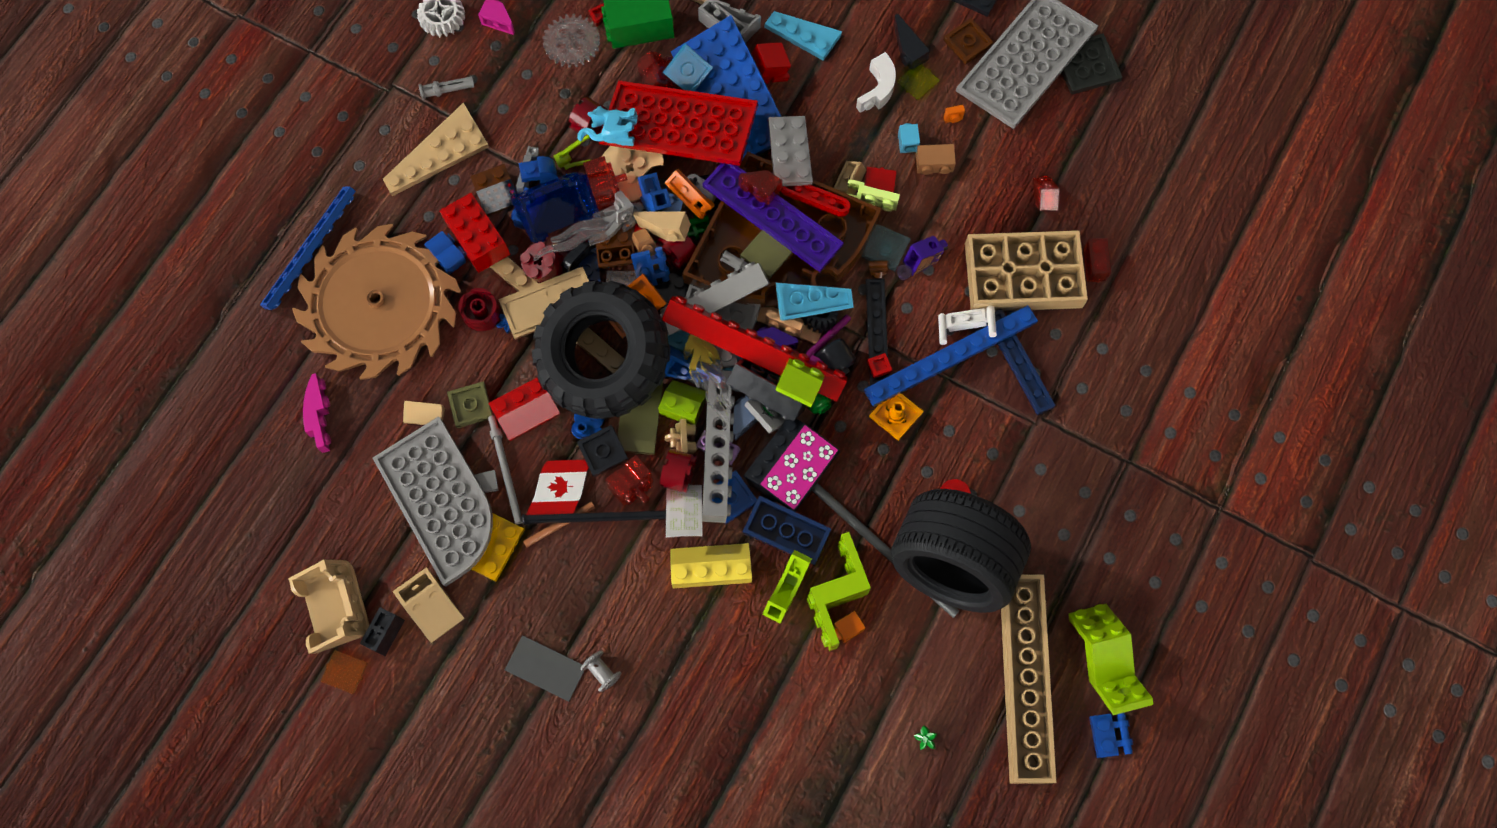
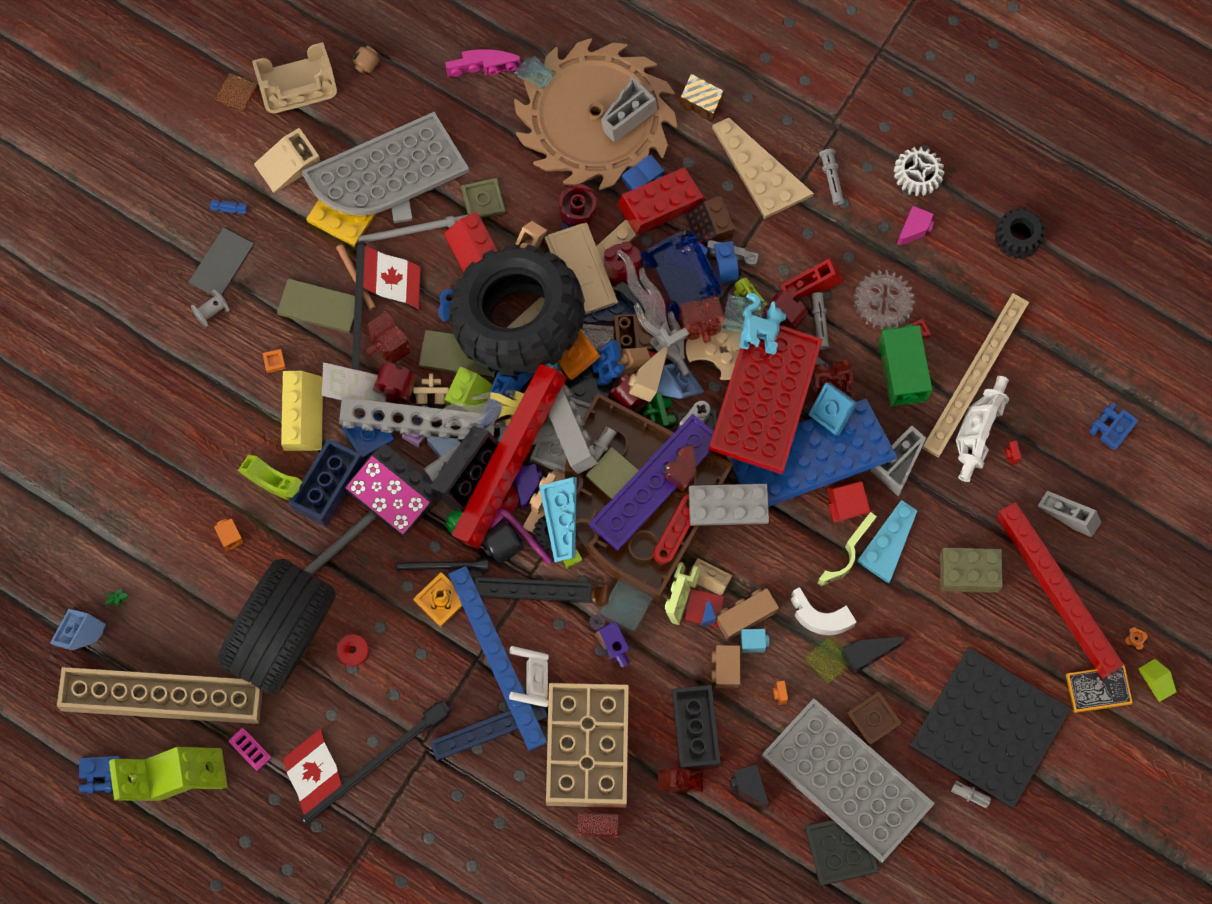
camera: 90 degrees right, 0 degrees up
(305, 252) = (647, 46): blue plate -> none
(309, 533) = (365, 59): none -> medium nougat head
(329, 359) = (534, 72): none -> clear light blue slope
(361, 199) = (702, 96): none -> slope
(376, 261) = (628, 111): none -> light grey wedge
(382, 631) = (267, 122): black hinge -> none
(421, 413) = (476, 156): tan slope -> none
(481, 665) = (230, 207): none -> blue axle
(517, 355) = (531, 234): none -> light nougat slope
(554, 99) = (815, 280): none -> red slope
(588, 151) = (734, 312): none -> clear light blue plate
(592, 560) = (317, 306): none -> olive tile
(593, 93) = (820, 320): none -> light grey pin
(602, 451) = (423, 316): black plate -> none
(653, 196) = (686, 366): blue brick -> none
(656, 599) = (273, 361): none -> orange plate
(689, 194) = (685, 403): orange plate -> none
(800, 382) = (464, 491): lime slope -> none
(810, 62) = (828, 577): none -> yellowish green piece
(838, 591) = (256, 509): lime bracket -> none
(857, 379) = (480, 565): none -> black piece
(879, 365) = (491, 584): red plate -> none
(884, 144) = (746, 613): none -> medium nougat brick
(889, 175) = (709, 616): none -> blue slope
(968, 776) = (77, 630): none -> medium blue slope
(997, 180) = (695, 728): none -> black brick
(1044, 132) = (749, 787): none -> black slope
(1058, 598) = (237, 737): none -> dark pink slope
(1082, 518) = (317, 775): none -> flag

